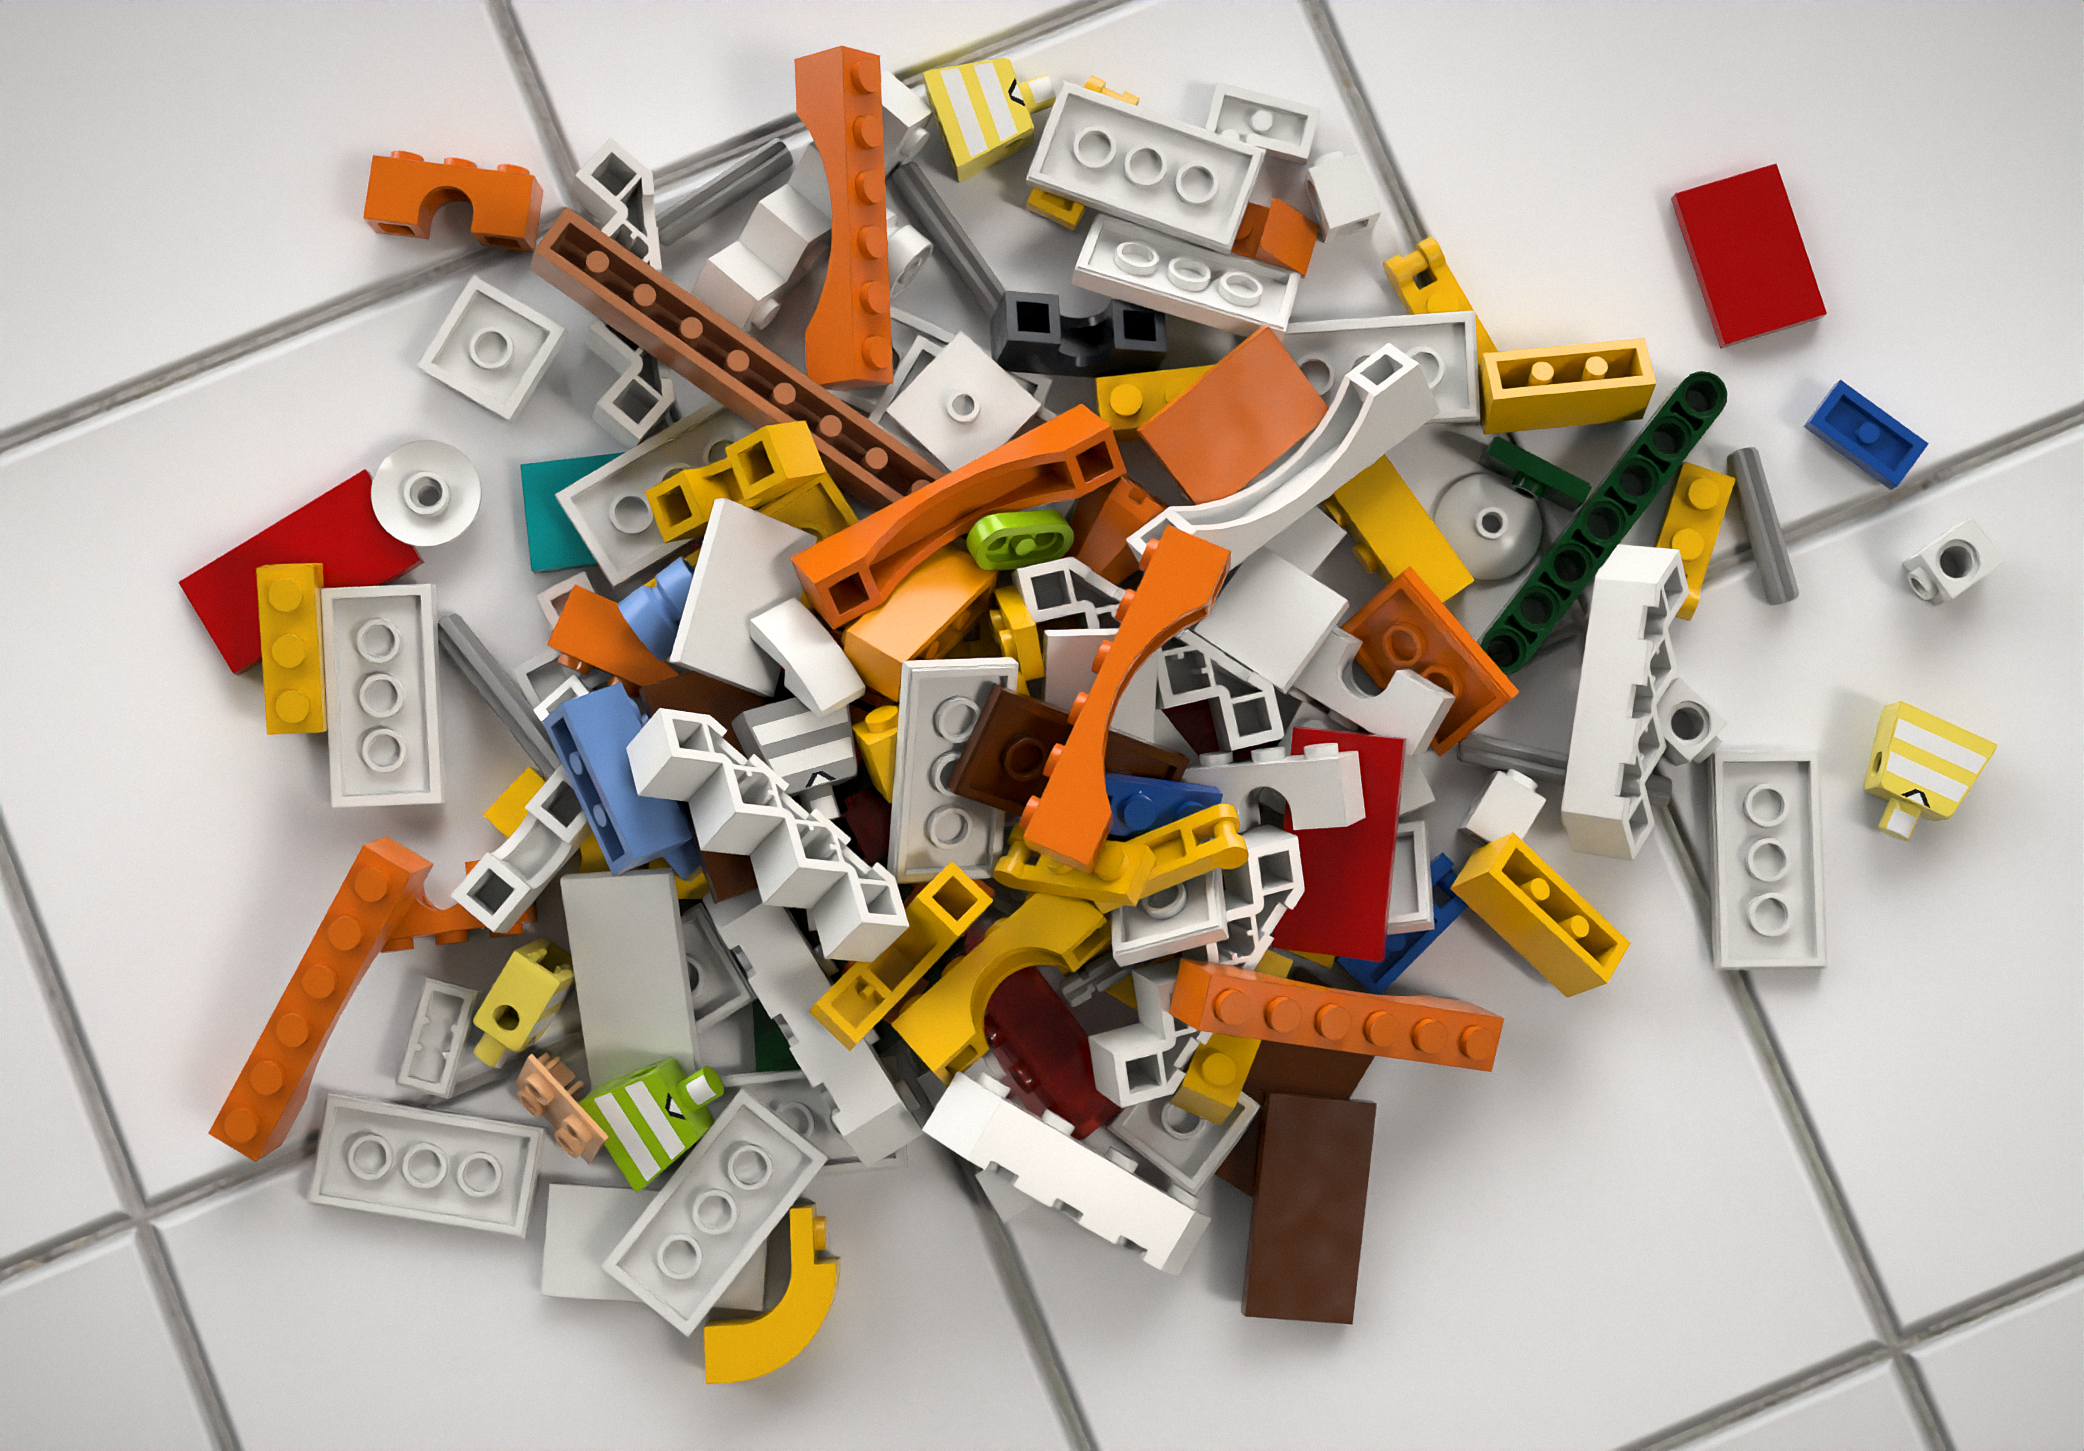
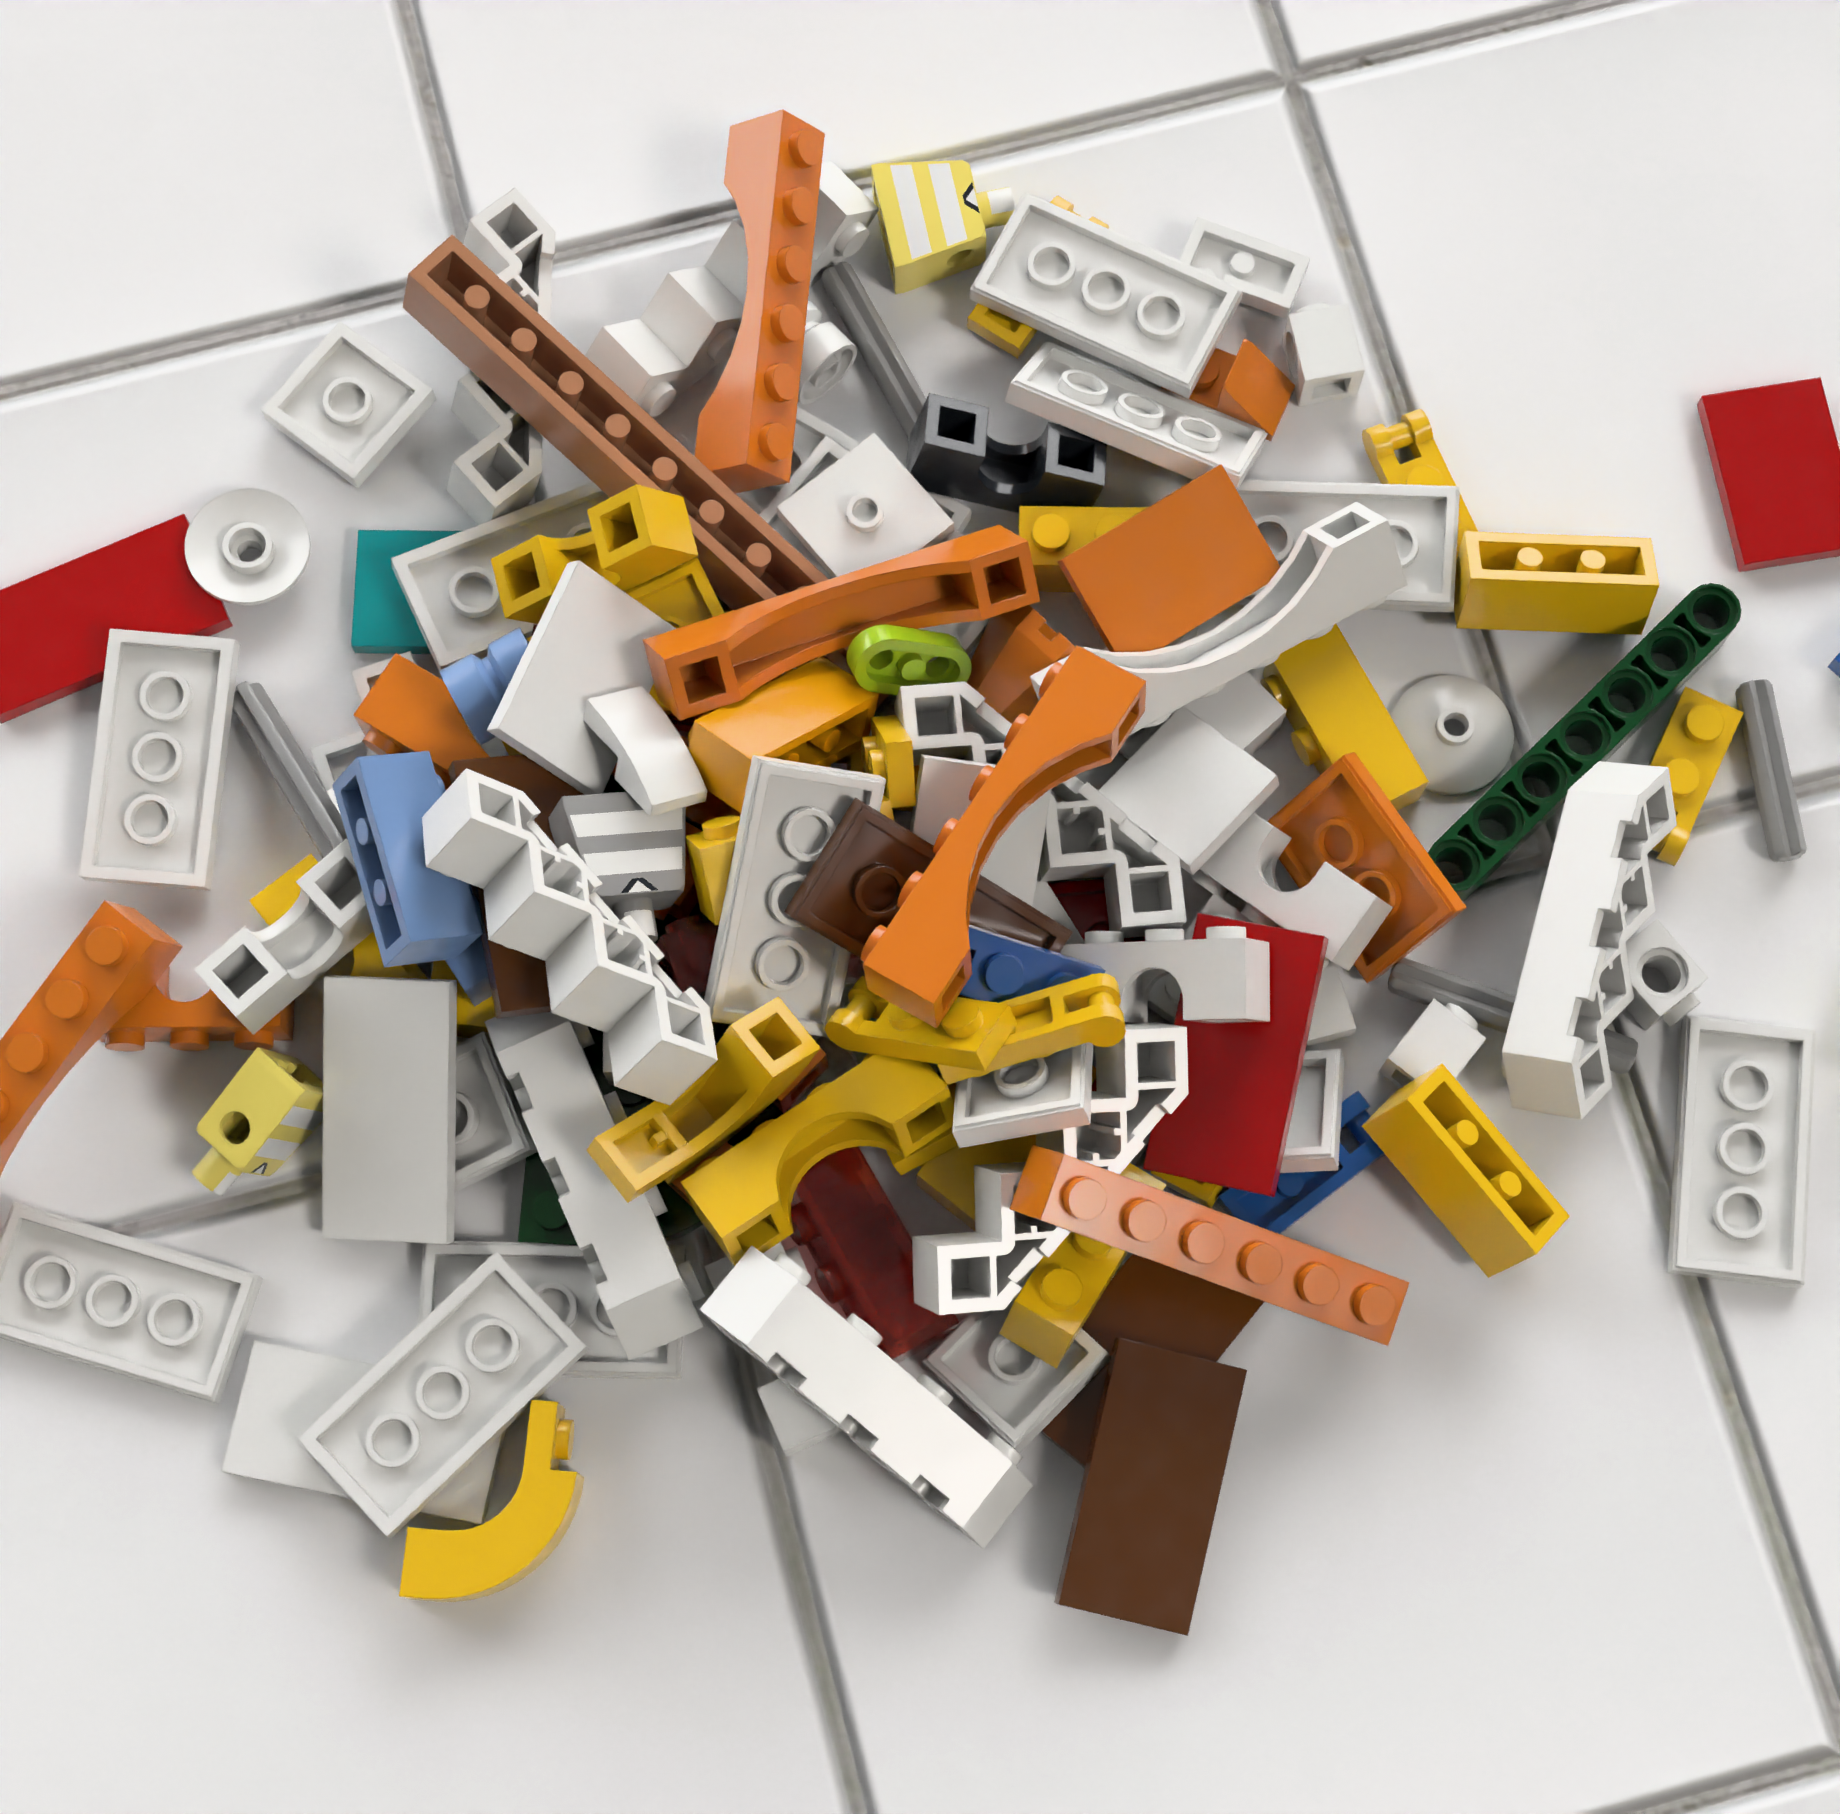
camera: 10 degrees right, 10 degrees down
(292, 647) = (66, 688): yellow brick -> none
(409, 192) = (287, 227): orange arch -> none
(438, 1037) = (153, 1154): white plate -> none
(543, 1093) = (275, 1232): light nougat hinge -> none
(653, 1116) = (387, 1272): lime torso -> none
(723, 191) = (631, 270): light grey axle -> none
(1097, 976) = (943, 1168): light grey axle -> none
(1533, 475) = (1509, 678): dark green plate -> none

